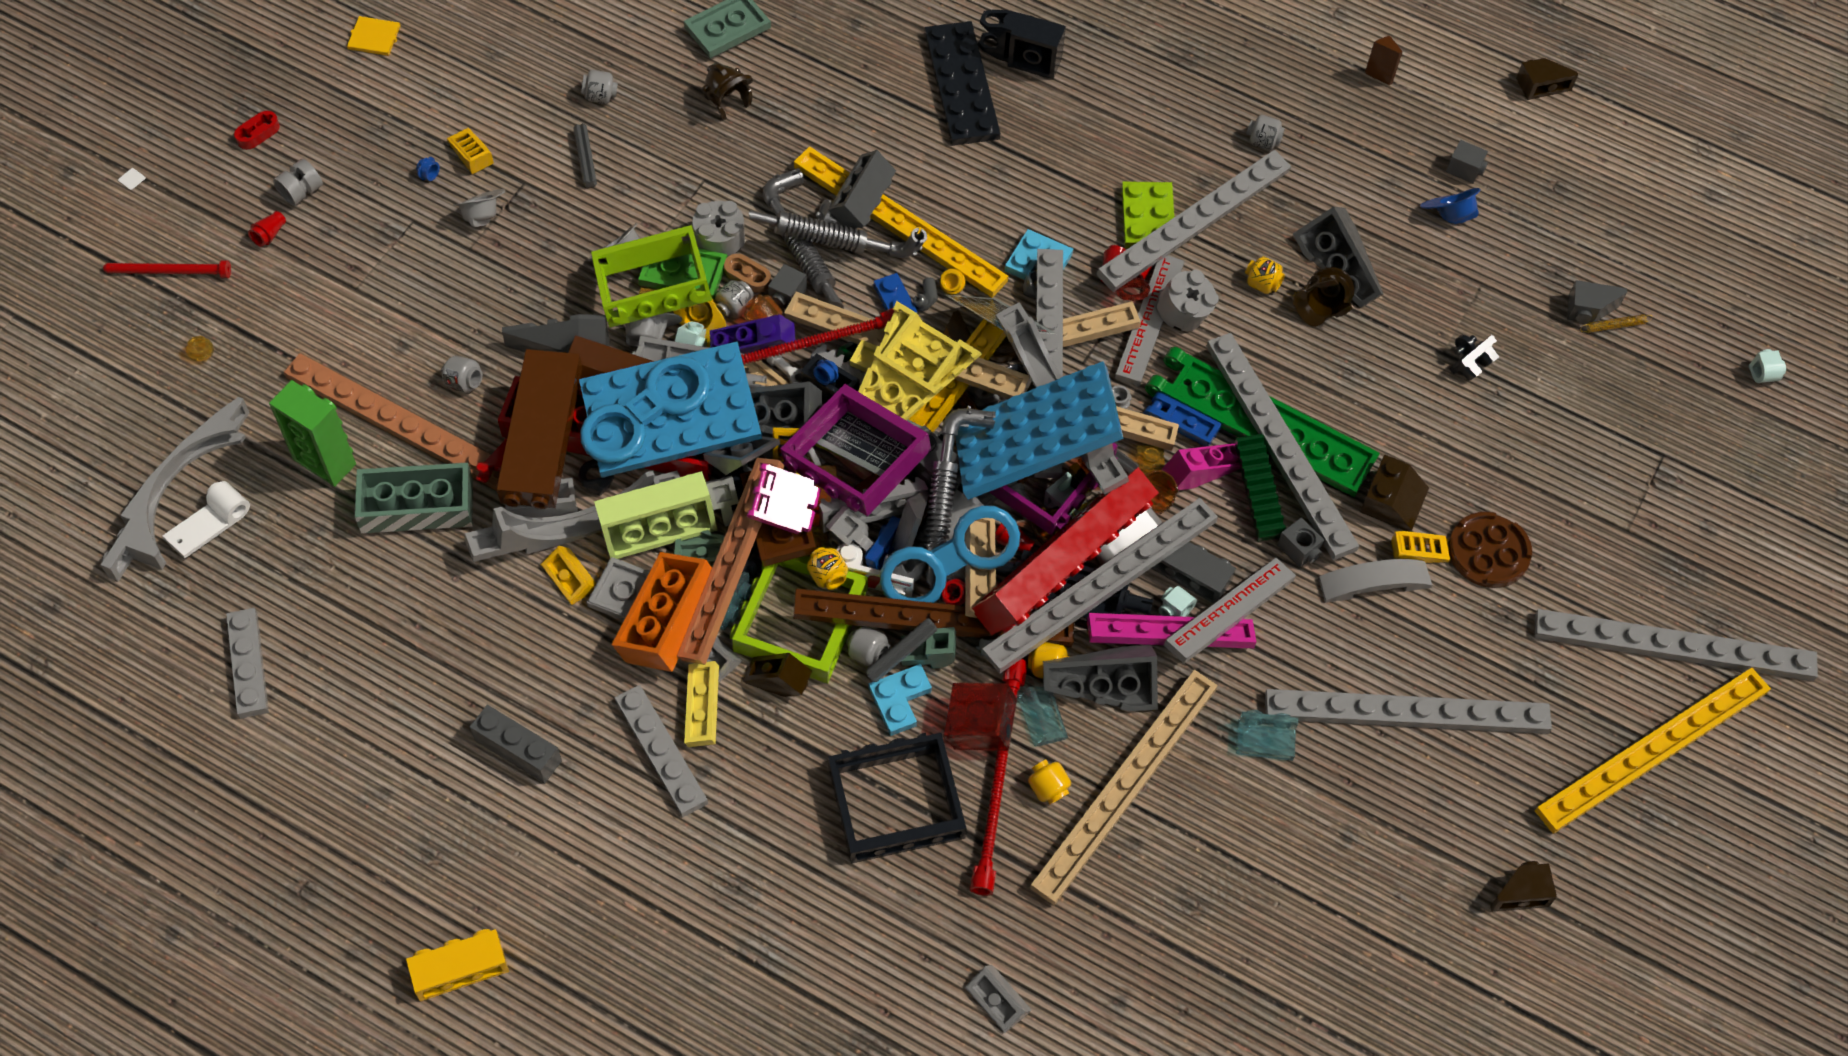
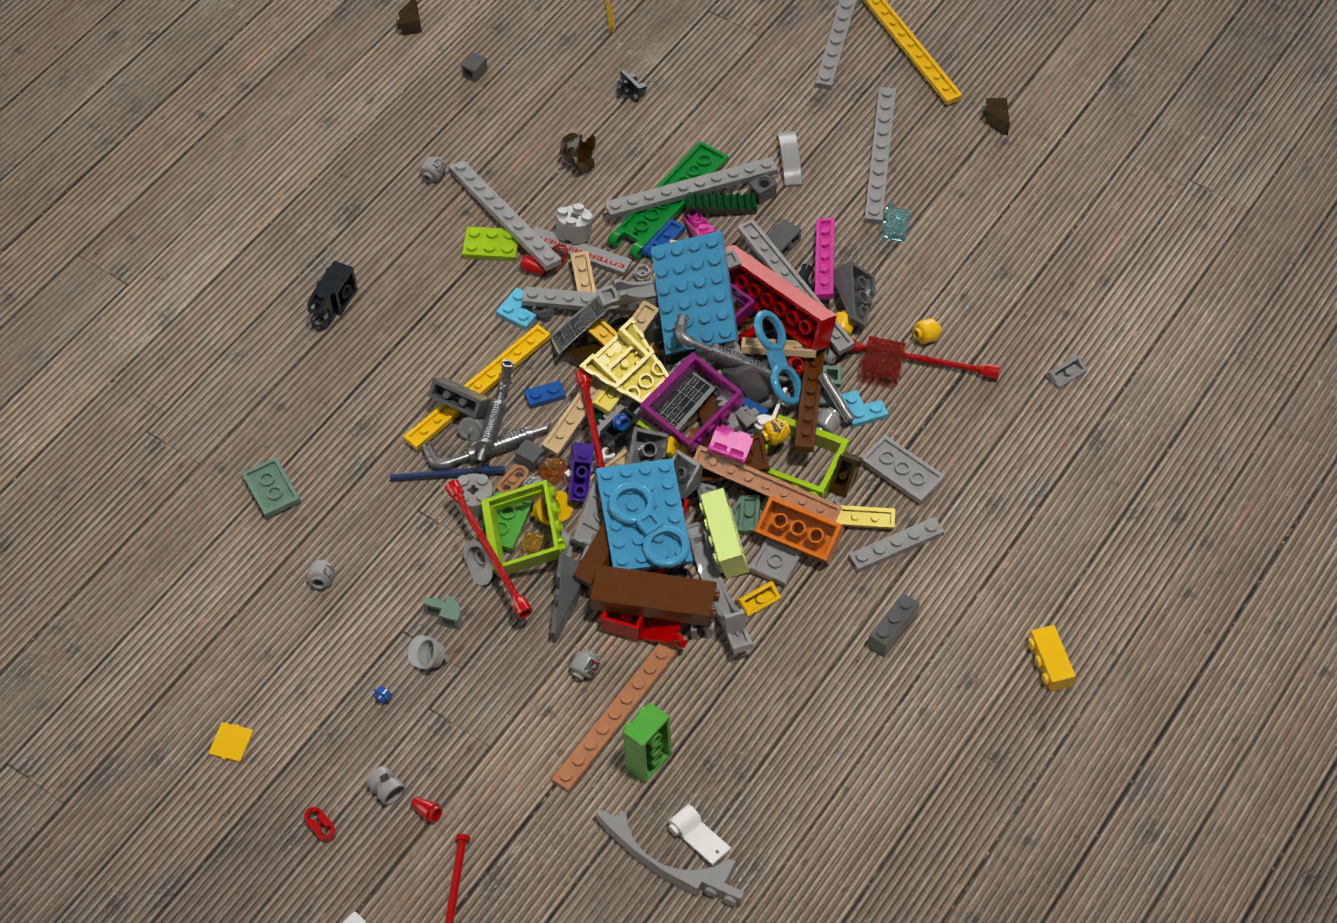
camera: 80 degrees left, 5 degrees down
(199, 348) = (538, 853): clear yellow plate -> none
(247, 663) = (819, 802): light grey plate -> none
(414, 498) = (694, 690): sand green brick -> none
(476, 162) = (376, 667): yellow slope -> none
(532, 282) = (520, 603): none -> red hose
(543, 222) = (447, 611): none -> sand green brick
(585, 155) = (384, 586): dark grey axle -> none
(692, 333) = (569, 516): light aqua plate -> none
(722, 82) = (342, 483): dark brown helmet -> none
(764, 240) = (485, 469): none -> dark blue bar
(790, 753) = (902, 469): none -> light grey plate
(904, 840) = (936, 383): black window -> none
(929, 296) = (545, 373): dark grey arm -> none
(952, 281) = (536, 358): yellow plate -> none
(962, 83) = (353, 342): black plate -> none
(1042, 716) = (884, 331): clear light blue slope -> none
(1123, 788) = (929, 295): tan plate -> none
(1177, 602) = (803, 255): light aqua plate -> none
(1229, 610) = (812, 226): light grey tile -> none
(1264, 275) = (553, 183): yellow head -> none
(1336, 243) = (537, 144): dark grey wedge -> none
(1384, 60) = (386, 94): reddish brown slope -> none
(1395, 494) = (729, 140): dark brown slope -> none
(1403, 538) = (768, 136): yellow slope -> none
(1456, 207) = (509, 77): blue piece -> none
(1490, 550) = (770, 100): reddish brown tile -> none
(1593, 301) = (595, 22): dark grey slope -> none

